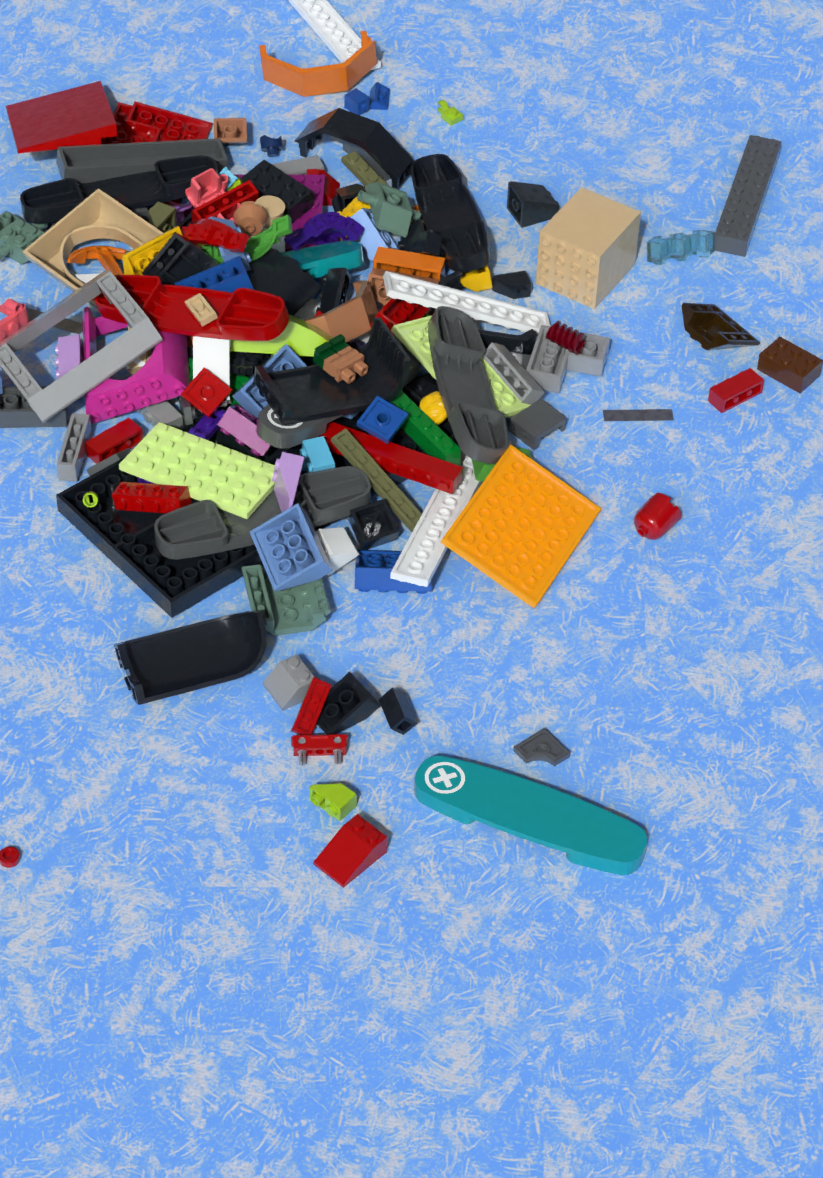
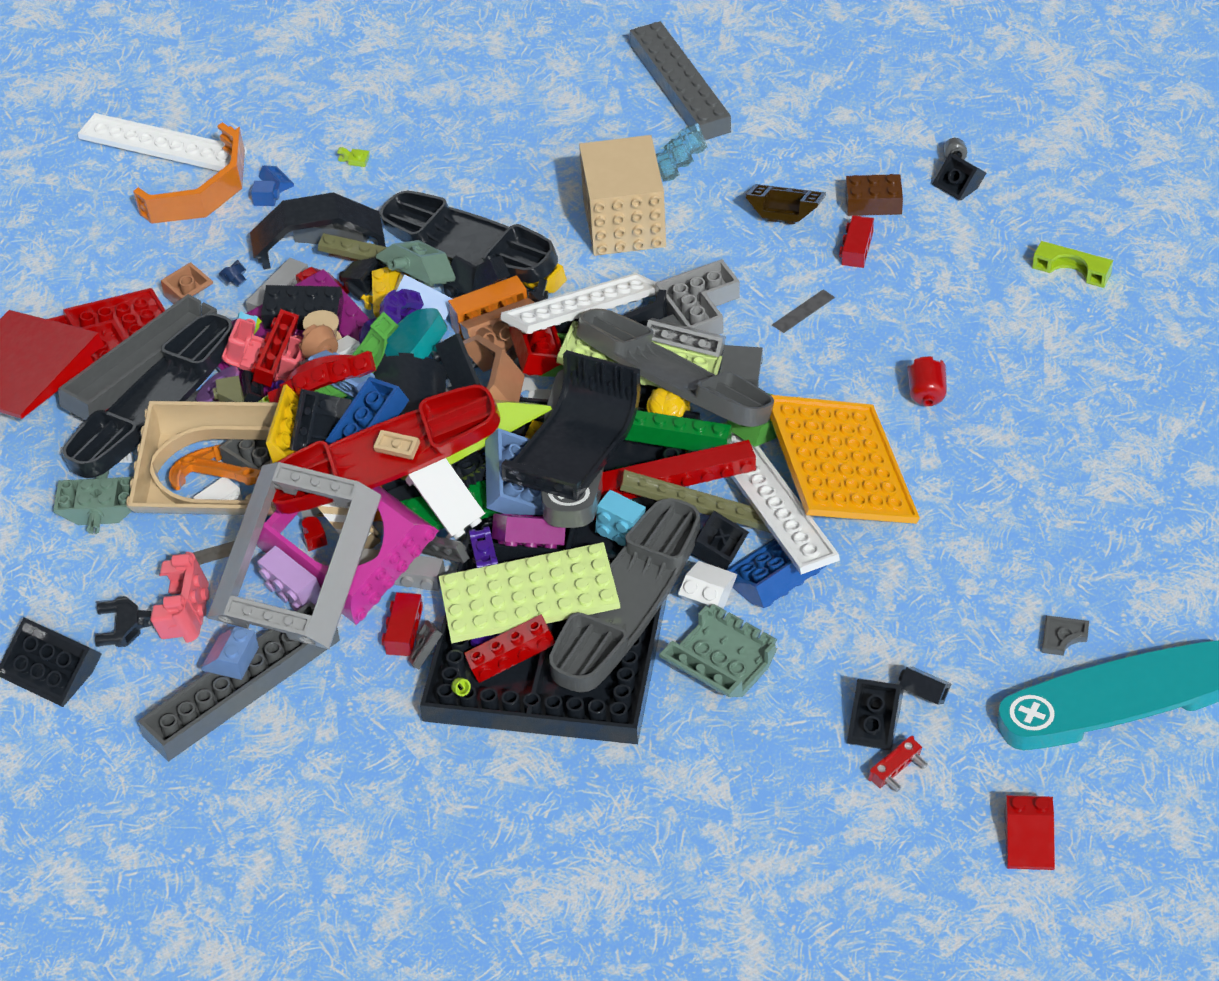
camera: 35 degrees left, 0 degrees up
(74, 447) = (377, 653): light grey brick -> none
(192, 656) = (706, 762): black panel -> none
(206, 392) = (463, 519): red plate -> none
(287, 479) = (632, 552): lavender slope -> none
(288, 682) = (809, 726): light grey slope -> none
(290, 549) = (691, 607): medium blue slope -> none
(311, 707) = (855, 734): red tile -> none
(334, 799) = (963, 799): lime slope -> none
(340, 359) = (559, 412): nougat hips -> none
(382, 419) = (646, 442): blue plant -> none
(513, 285) = (583, 266): black slope -> none
(530, 203) = (518, 191): pearl dark grey slope -> none
(566, 337) = (694, 278): dark red piece -> none

